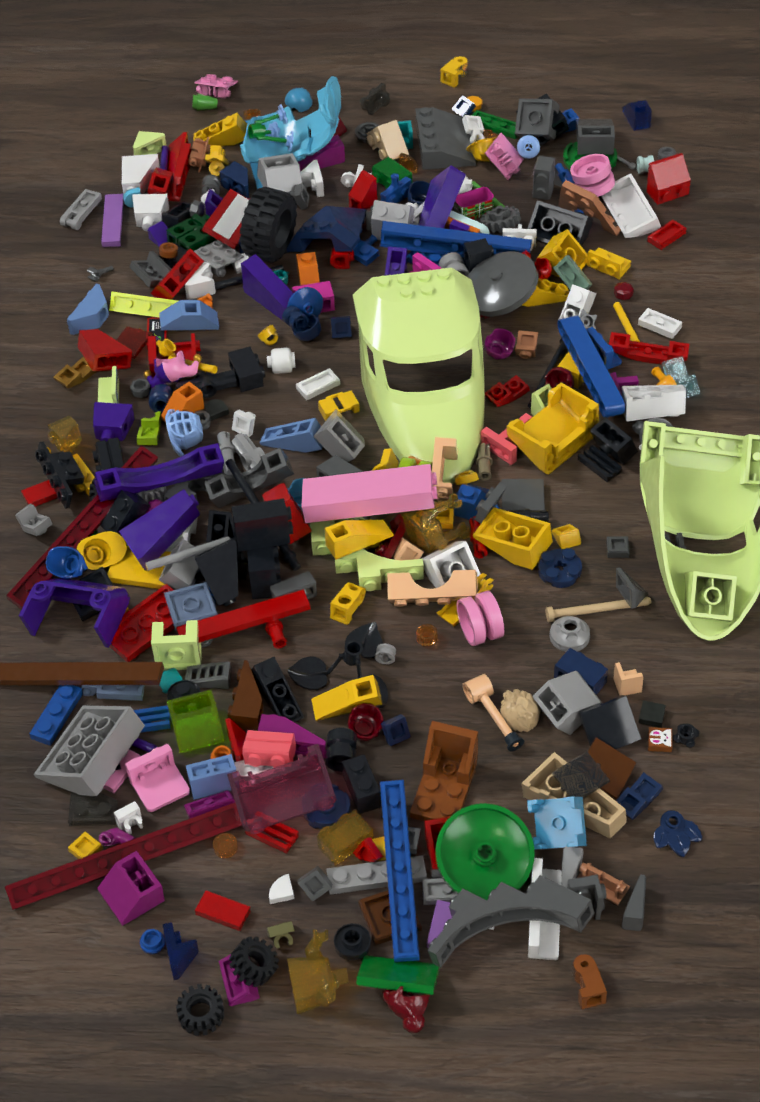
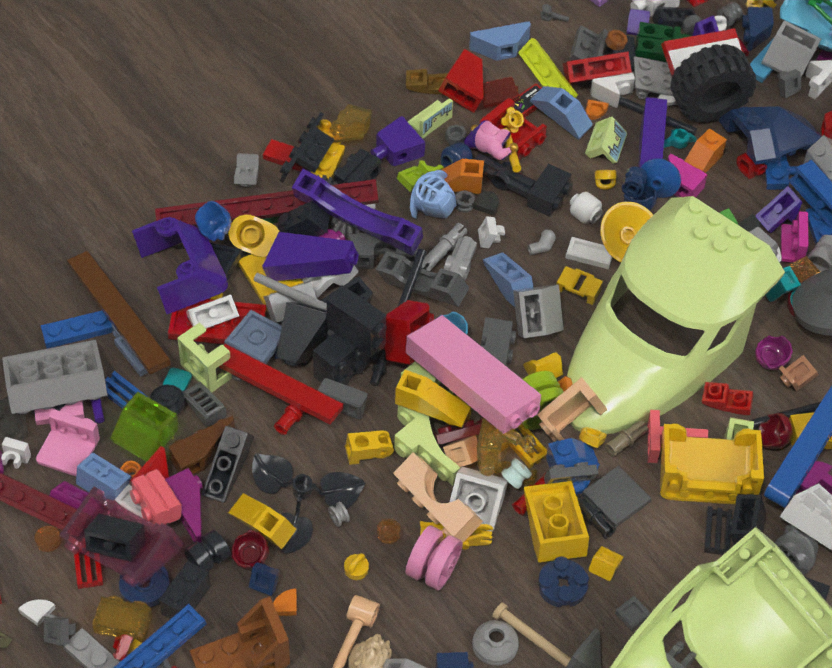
camera: 45 degrees right, 5 degrees up
(140, 618) = (213, 312): none -> white slope
(236, 314) = (607, 139): none -> yellowish green panel
(279, 792) = (114, 537): none -> black brick
(284, 399) = (544, 244): none -> light grey arm
(330, 350) = (621, 225): none -> yellow hat
(422, 731) = (286, 603): none -> orange tile
(436, 672) = (356, 566): none -> yellow tile
(457, 532) = (516, 473): none -> light aqua wheel

